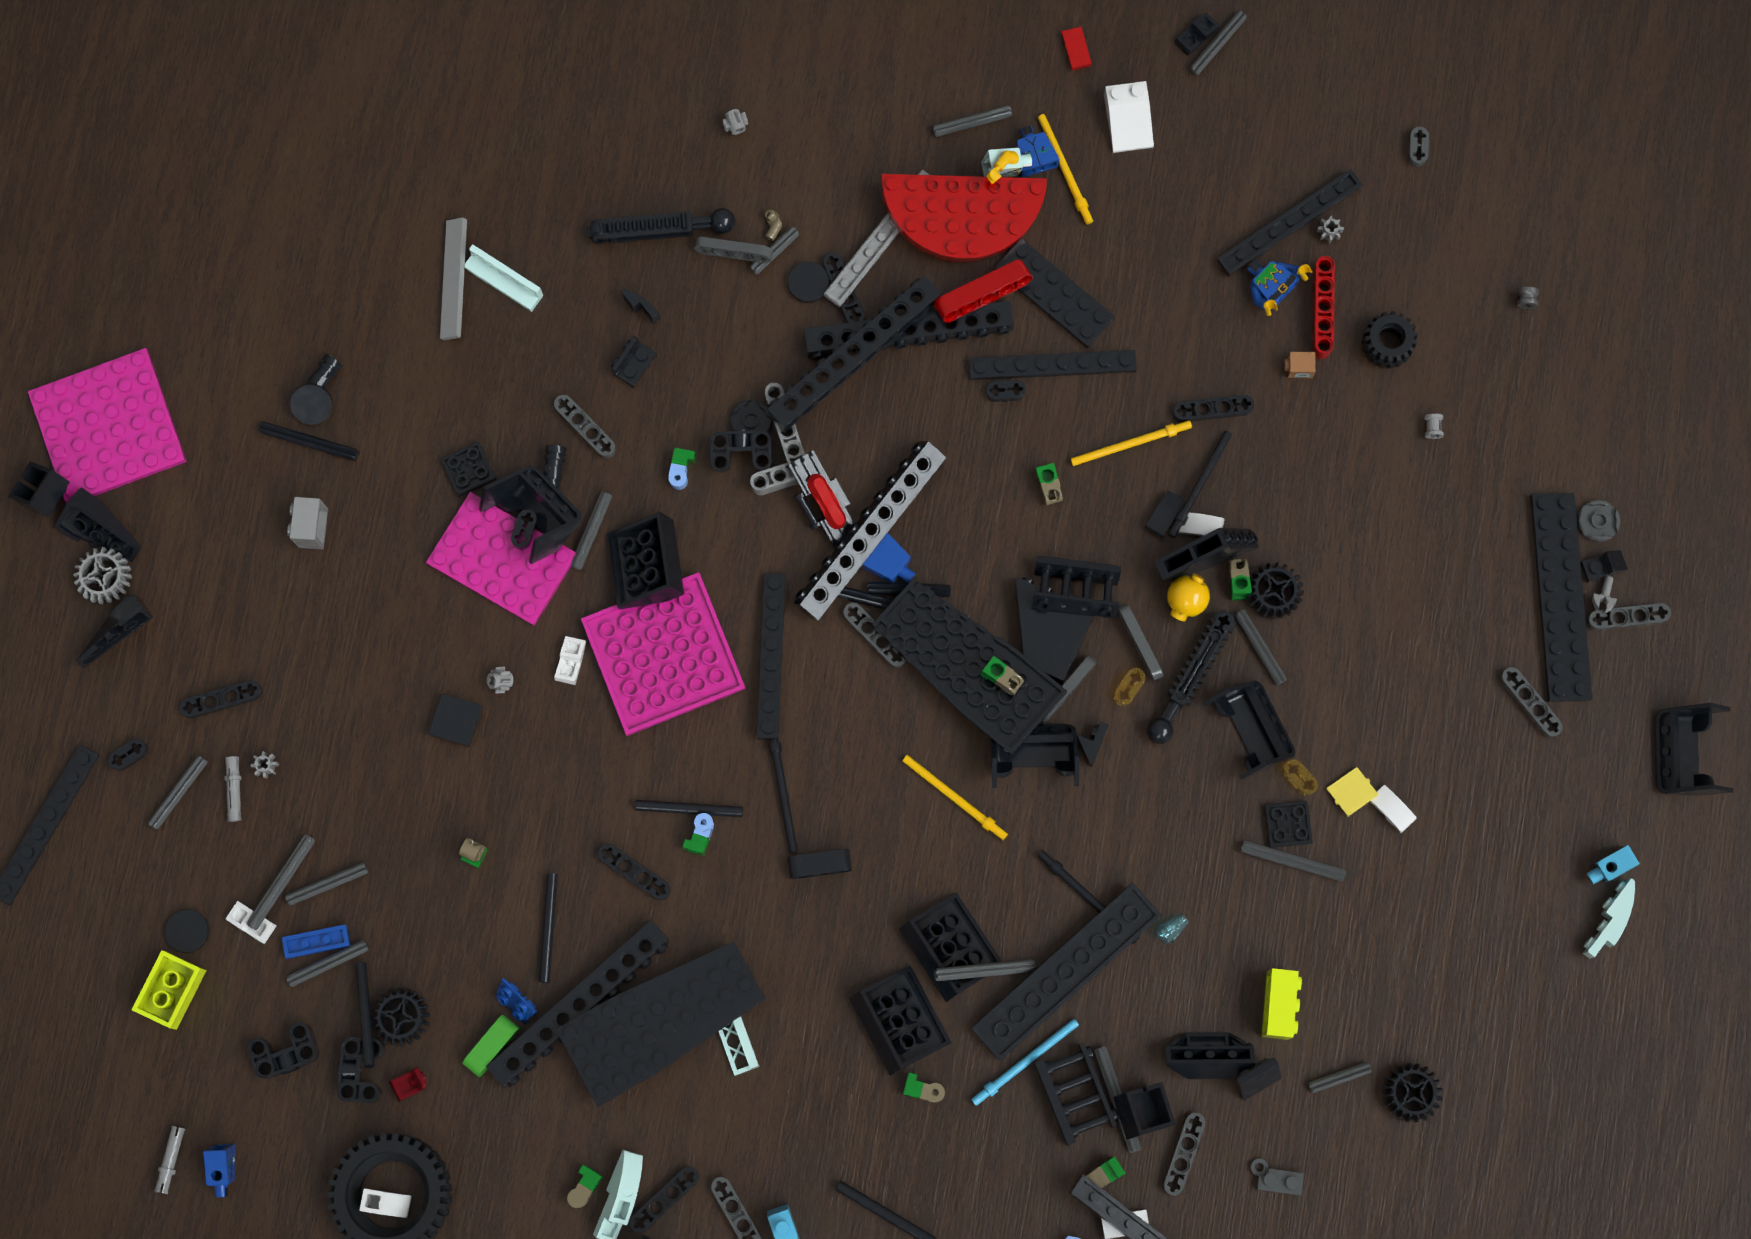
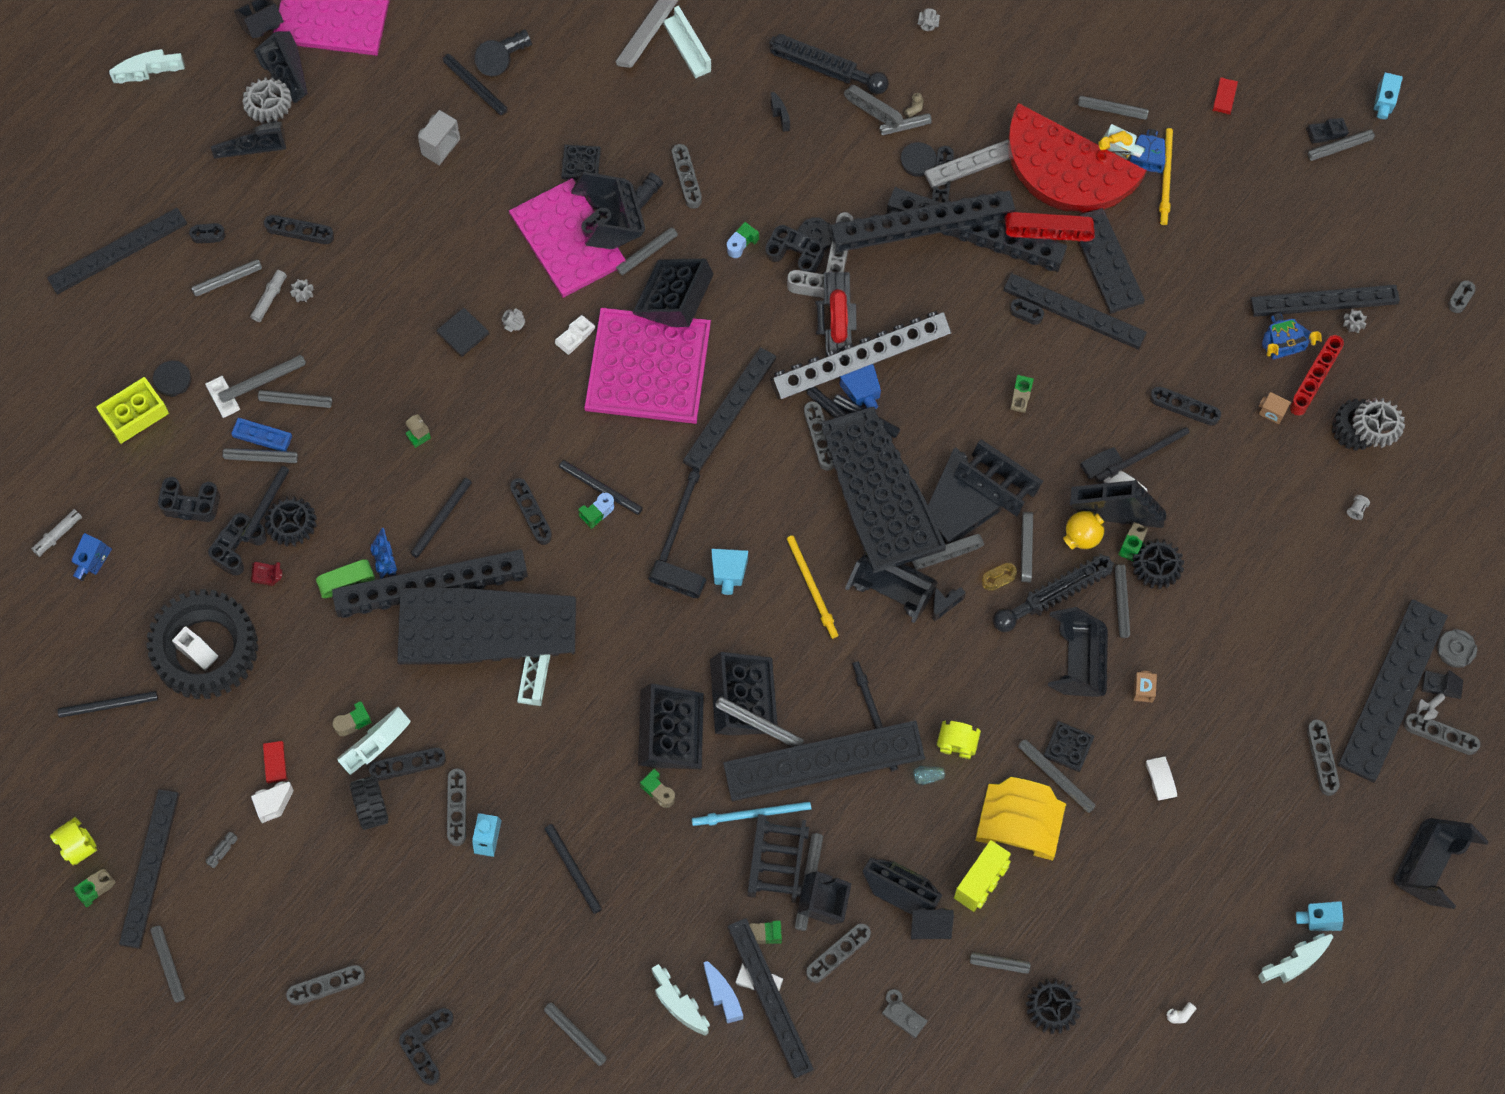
camera: 25 degrees right, 10 degrees down
(633, 362) = (750, 148): black bracket -> none
(864, 825) = (729, 568): none -> medium azure torso
(1002, 676) = (900, 507): leg -> none
(1129, 116) = (1238, 162): white slope -> none
(1169, 430) = (1140, 404): yellow bar -> none
(1183, 878) = (958, 738): none -> neon yellow brick
(1282, 921) = (1022, 816): none -> yellow slope
(1296, 781) = (1103, 714): clear yellow beam -> none
(1328, 724) = (1145, 686): none -> medium nougat brick
(1352, 791) = (1135, 748): light yellow piece -> none
(1409, 316) = (1387, 417): none -> light grey gear
(1528, 297) = (1490, 450): flat silver wheel -> none
(1534, 1034) = (1181, 1016): none -> white arm

